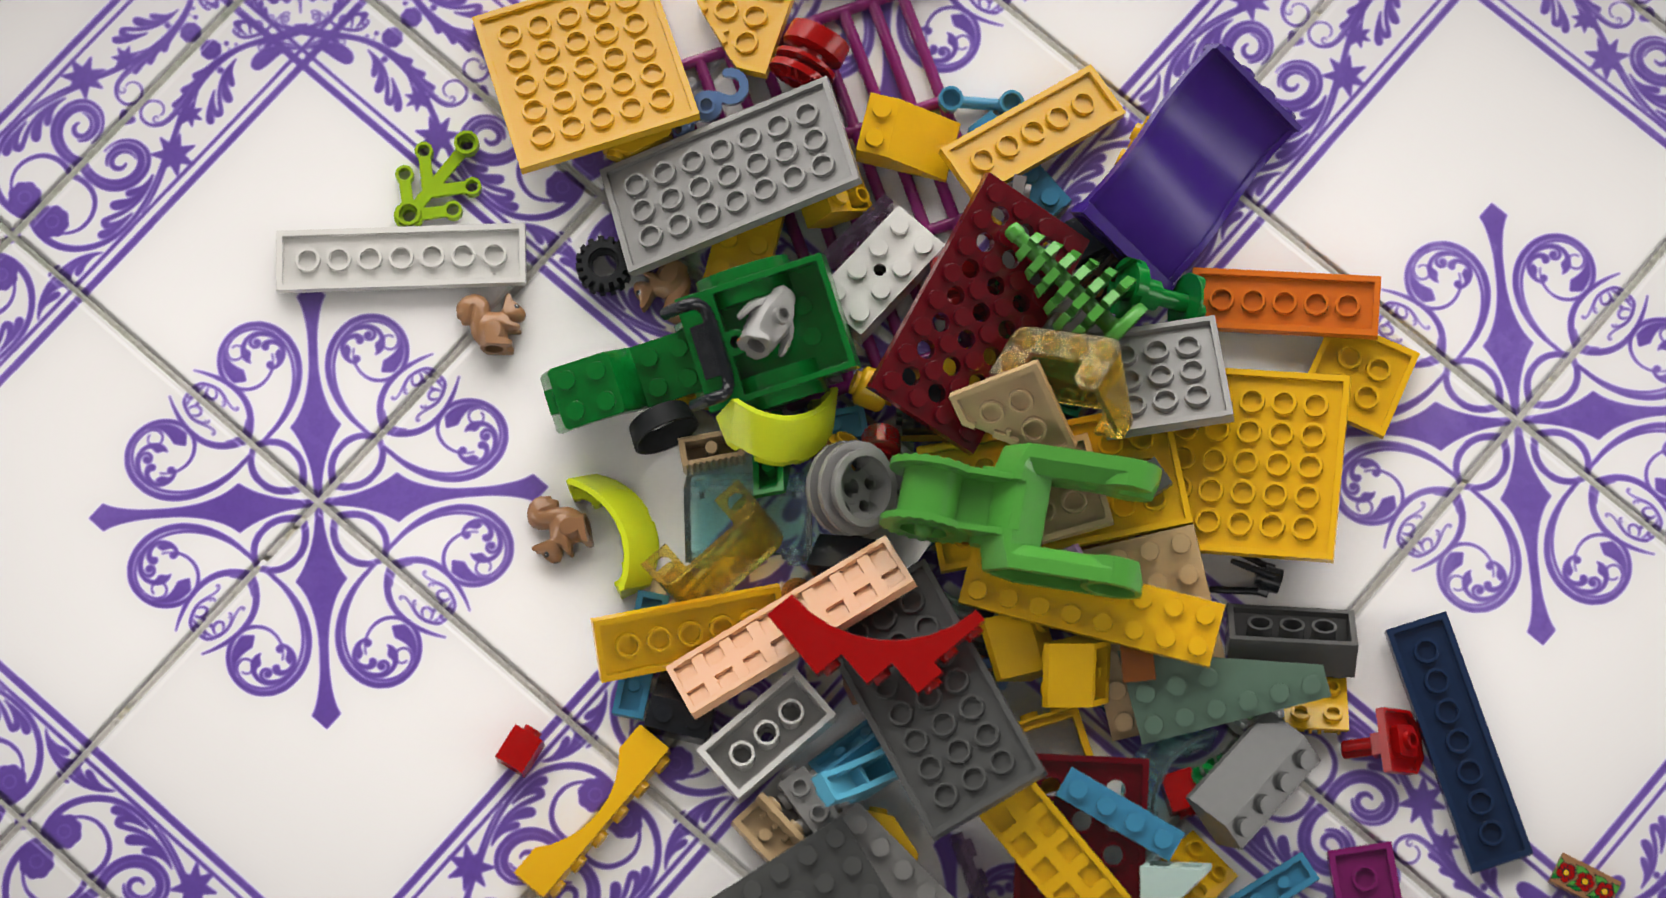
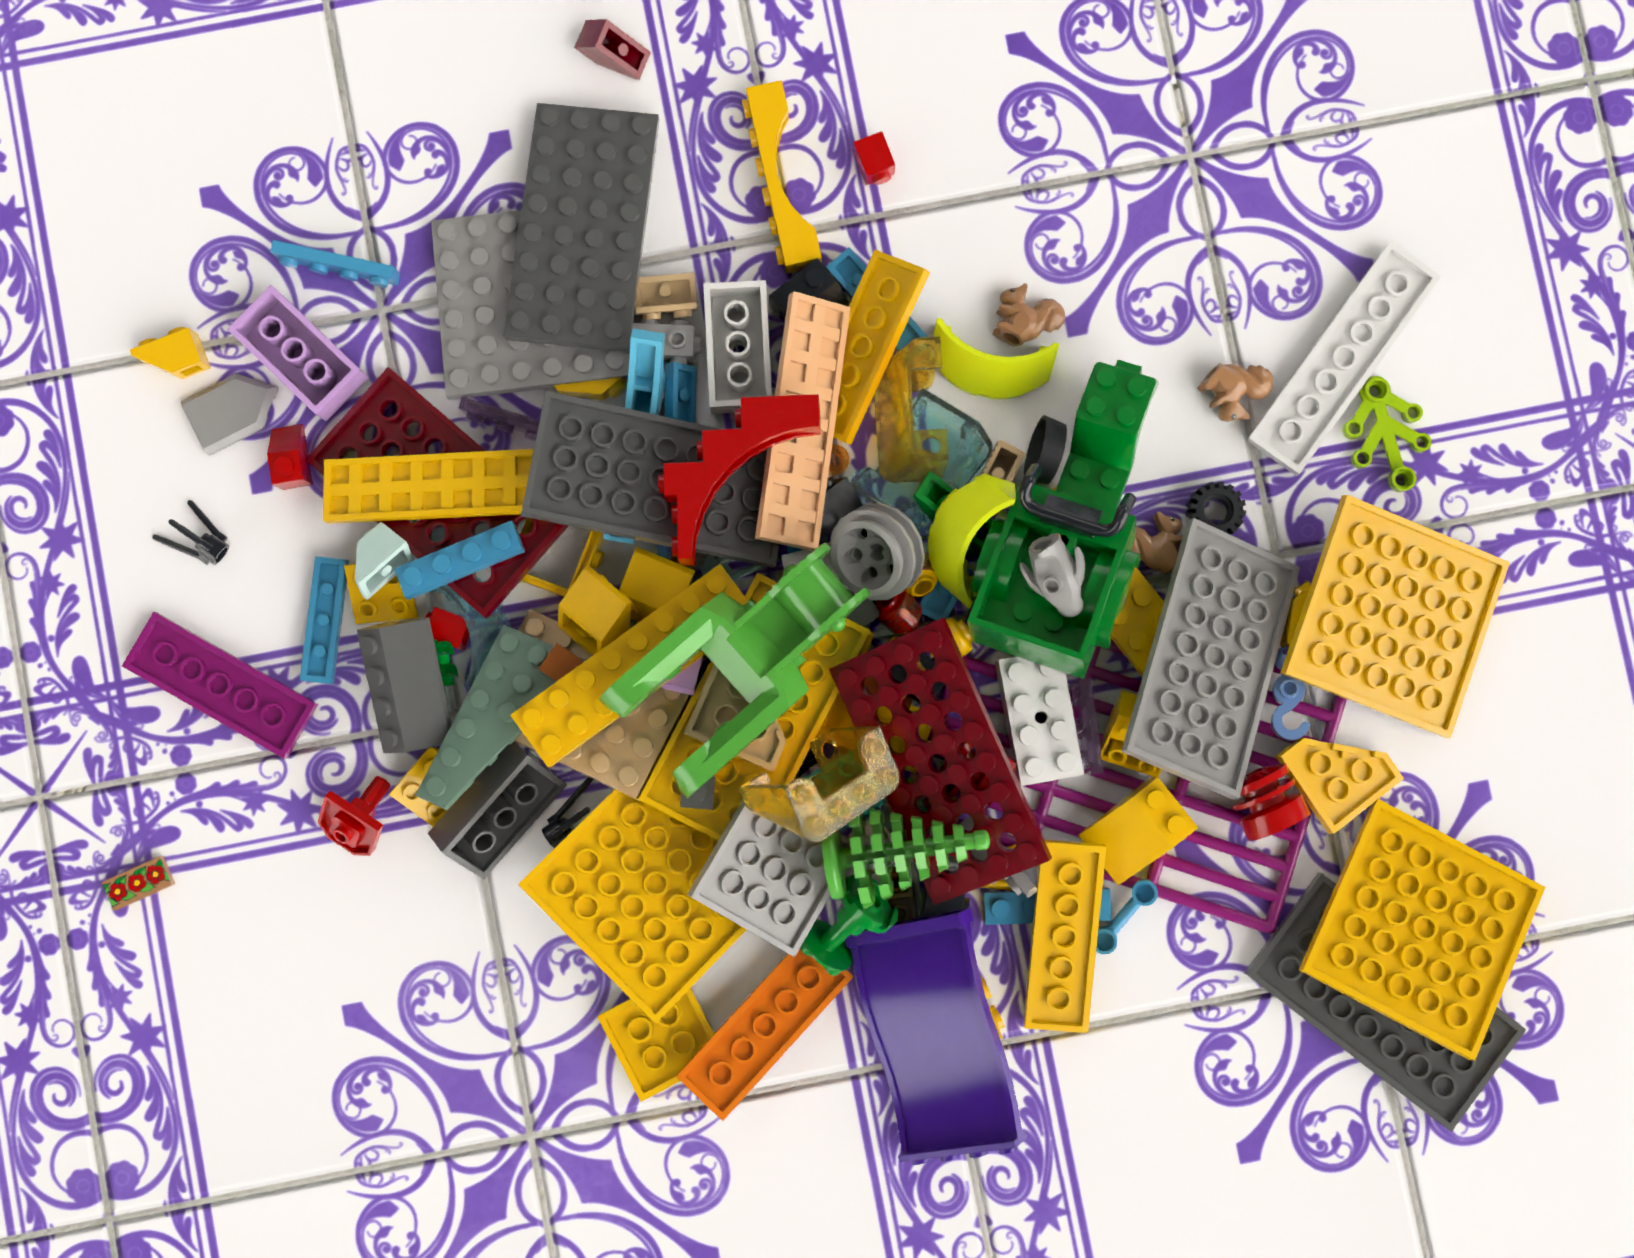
camera: 125 degrees right, 10 degrees up
(1015, 408) = (832, 724): tan plate -> none
(1458, 743) = (317, 874): dark blue plate -> none

